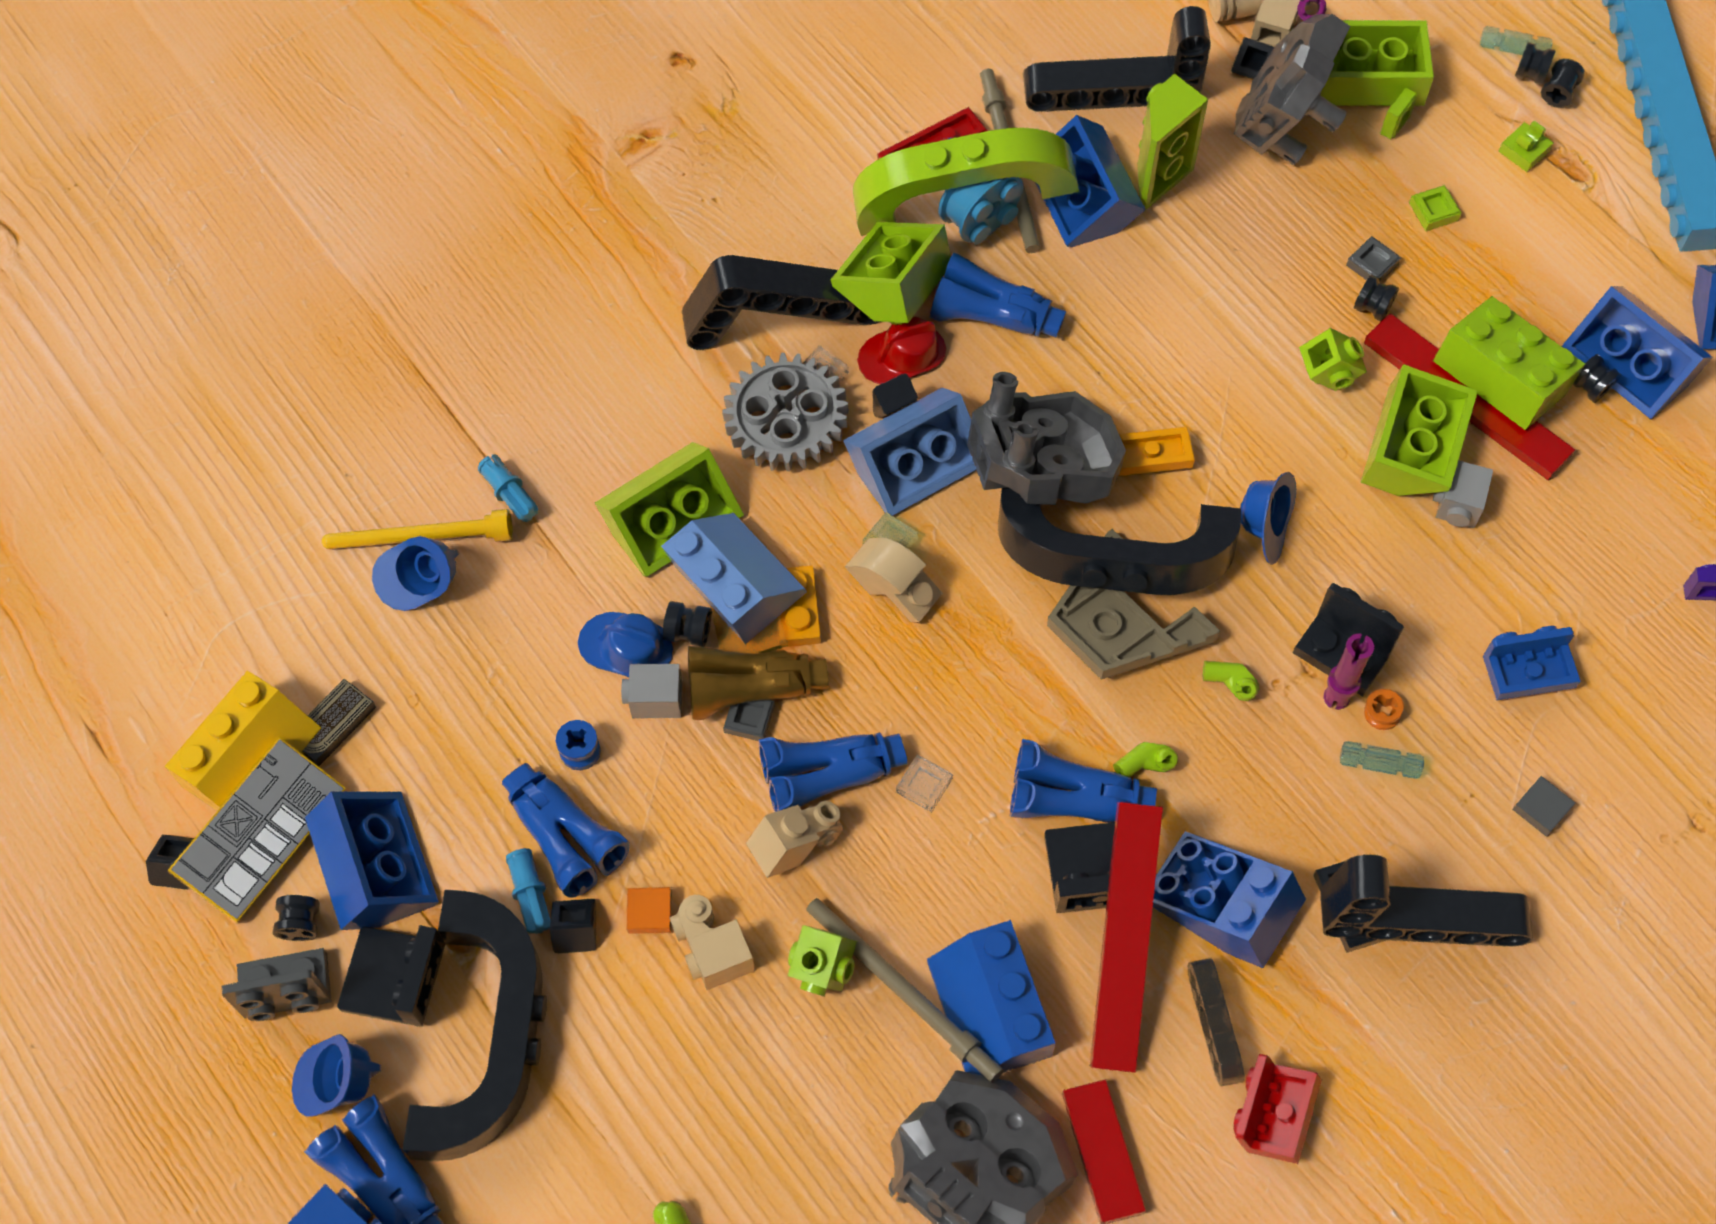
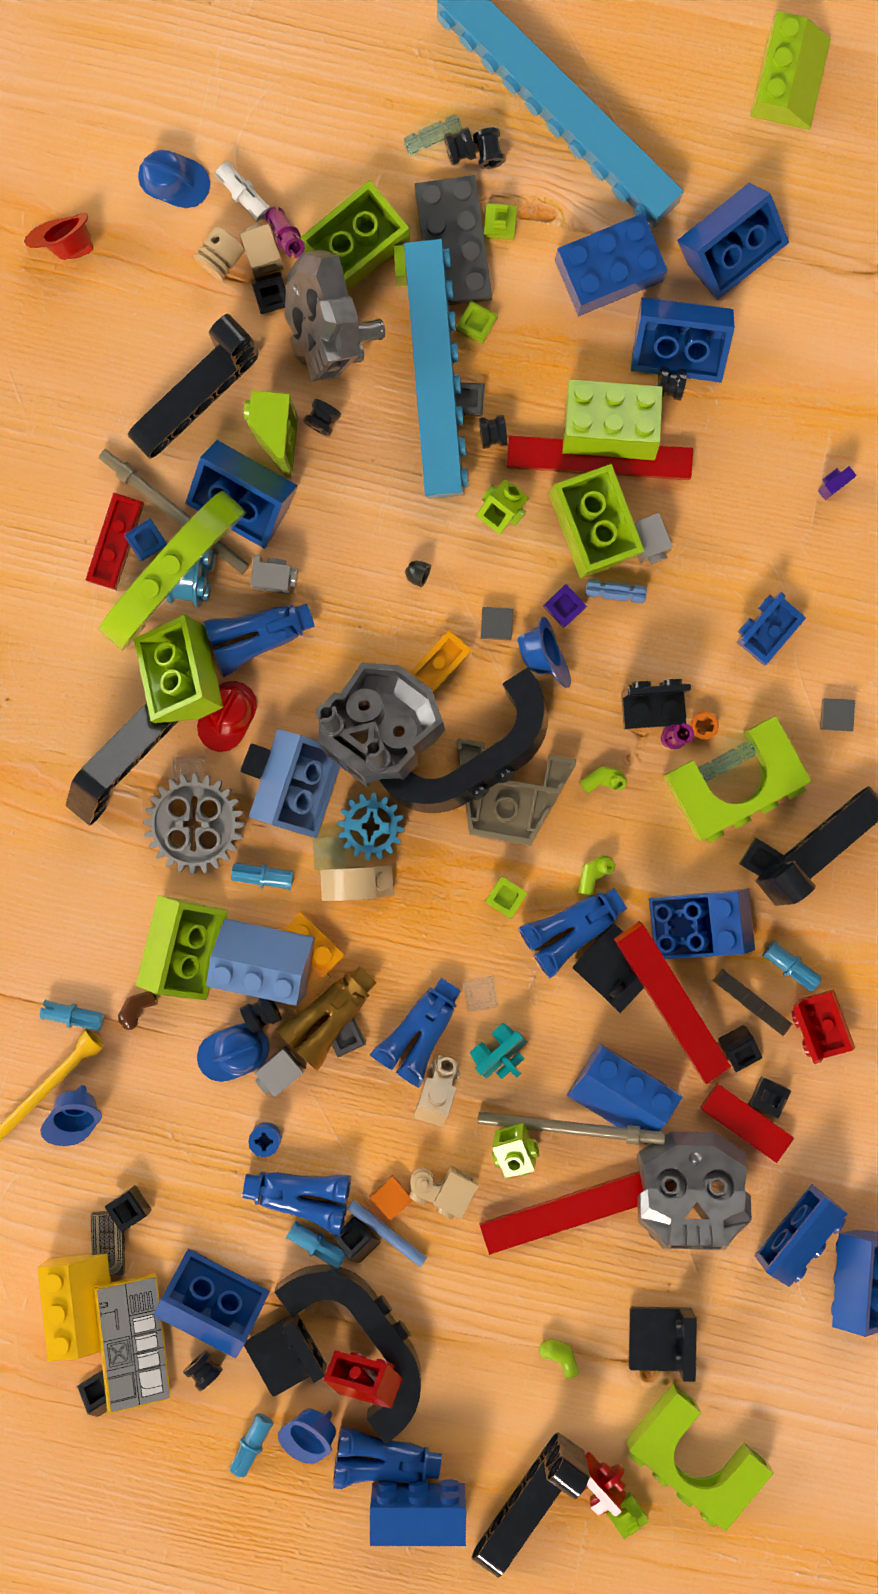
camera: 40 degrees left, 25 degrees up
(264, 1041) = (251, 1445): none -> dark azure axle
(280, 984) = (230, 1412): dark grey bracket -> none
(384, 701) = (128, 1208): none -> black slope
(448, 1052) = (363, 1378): none -> red brick
(576, 525) = (129, 1012): none -> reddish brown arm
(611, 943) = (386, 1233): none -> medium blue bar
(807, 507) = (262, 876): none -> dark azure axle
(807, 1075) = (562, 1213): none -> red tile
(894, 854) = (489, 1061): none -> teal hips
(954, 540) = (356, 825): none -> dark azure gear
(1034, 703) = (506, 897): none -> lime tile
(1053, 266) = (273, 575): none -> light grey brick
(1152, 1145) = (769, 1097): none -> black tile
(1161, 1067) = (740, 1048): none -> black slope
(1199, 363) = (417, 572): none -> pearl dark grey hinge
(1217, 177) = (322, 417): none -> black wheel
(1239, 461) = (496, 623): none -> dark grey tile
(1291, 1021) = (792, 966): none -> dark azure axle
(1324, 492) = (565, 606): none -> dark purple plate
(1325, 797) = (780, 777): none -> lime arch
(1360, 208) = (434, 368): none -> dark azure brick
(1389, 519) = (616, 591): none -> medium blue axle
(1465, 133) = (452, 213): none -> dark grey plate
(1611, 242) = (610, 264): none -> blue brick

